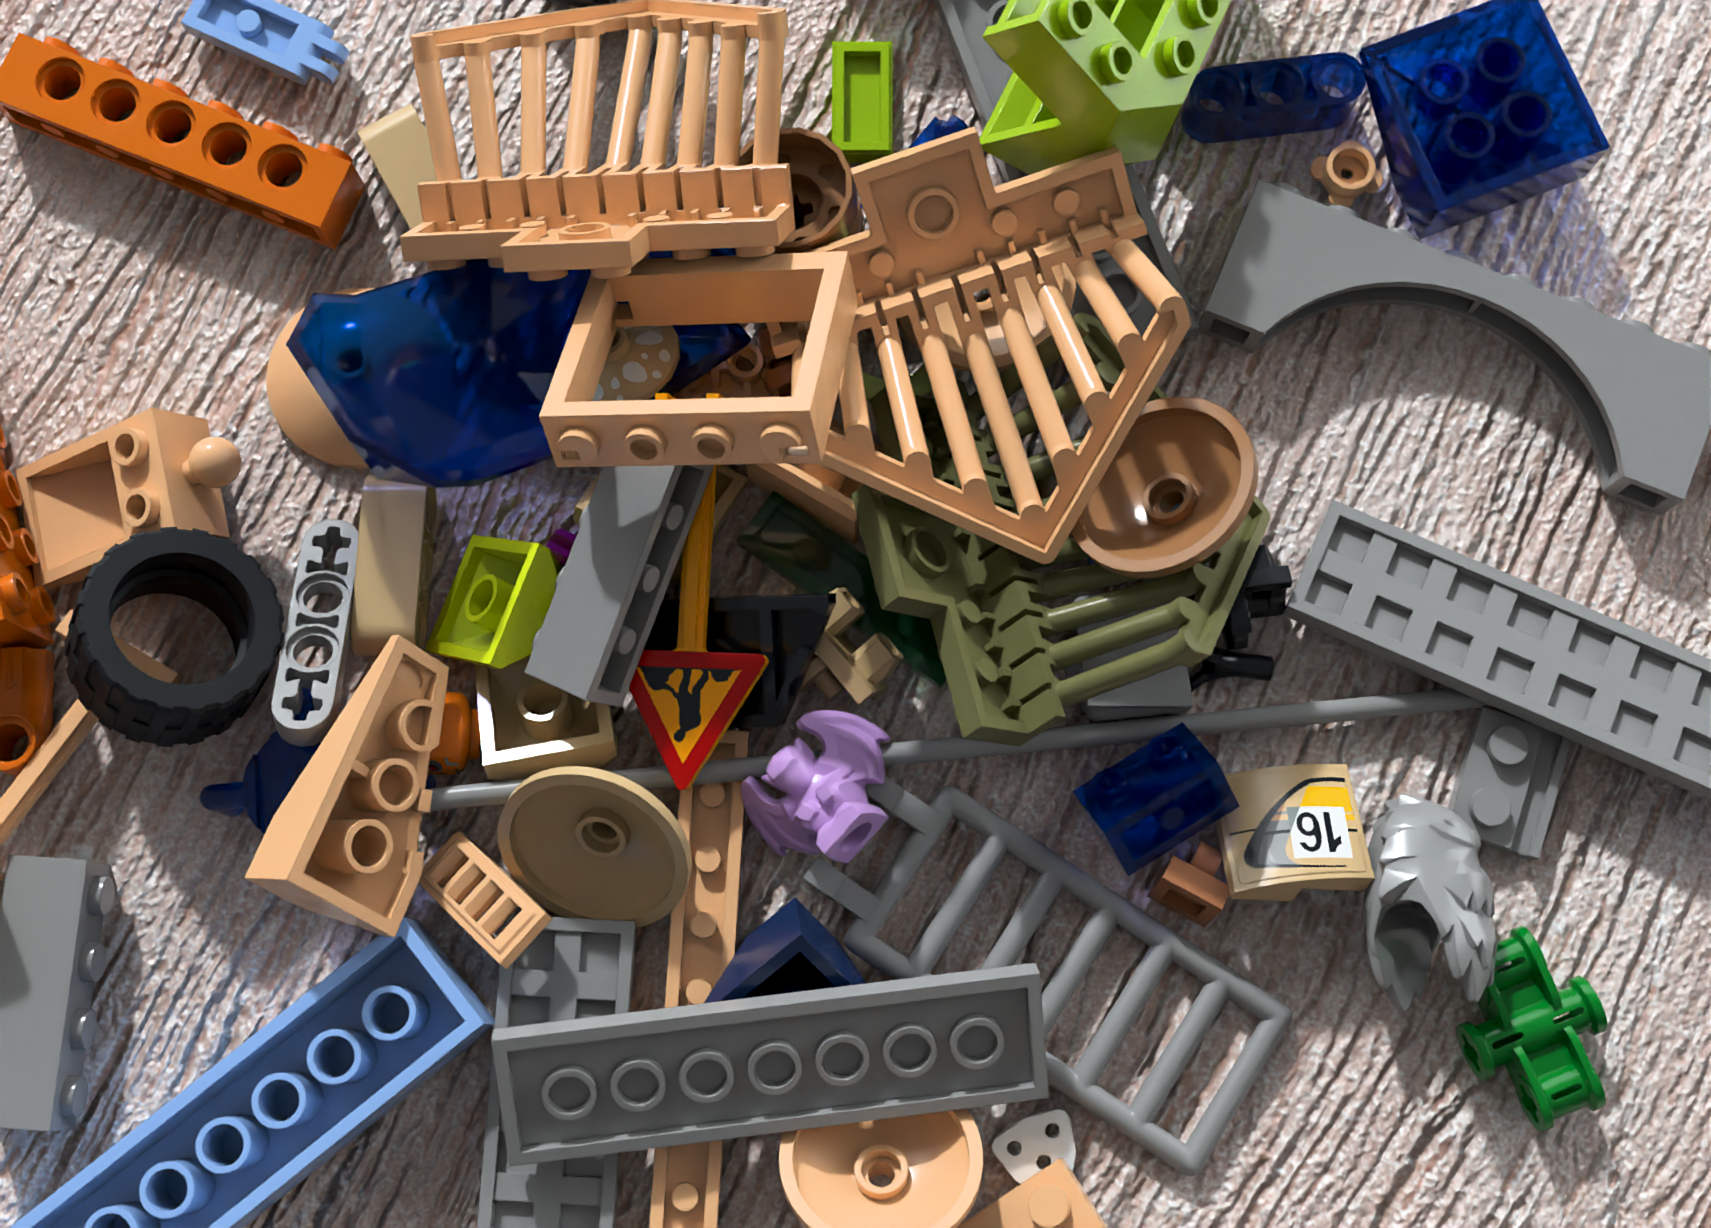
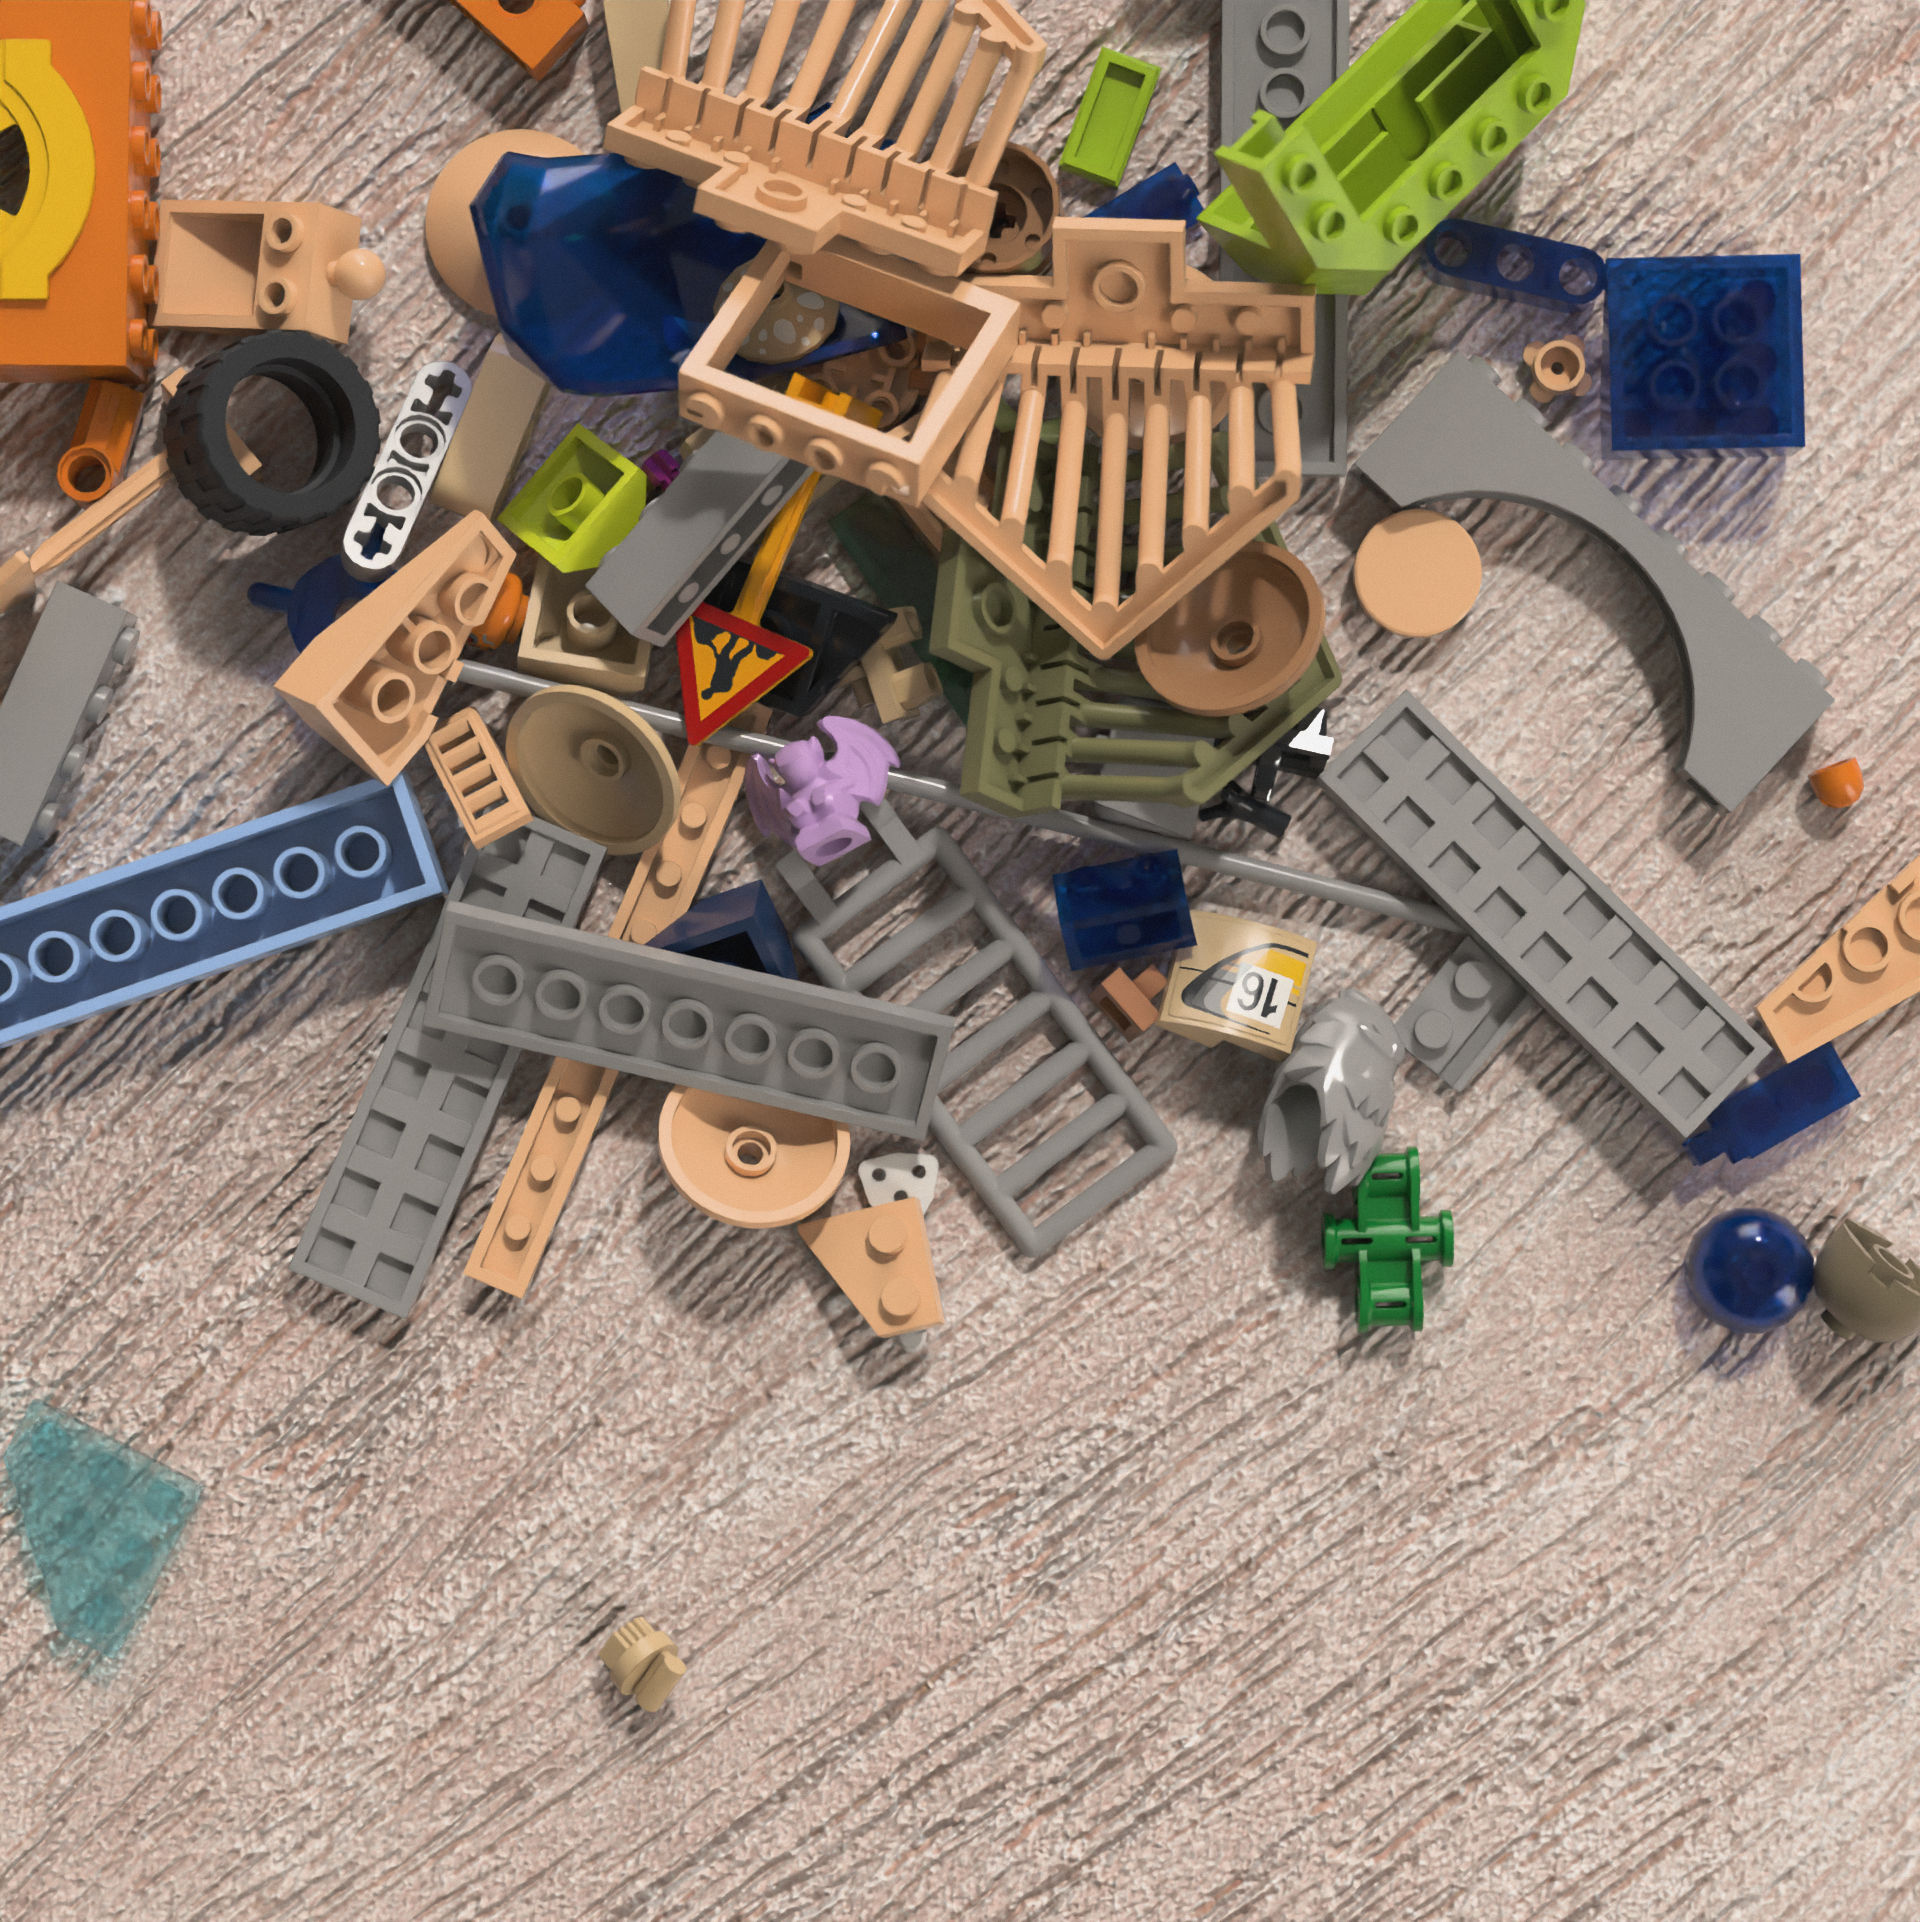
camera: 15 degrees right, 10 degrees up
(1298, 394) = (1417, 573): none -> light nougat tile

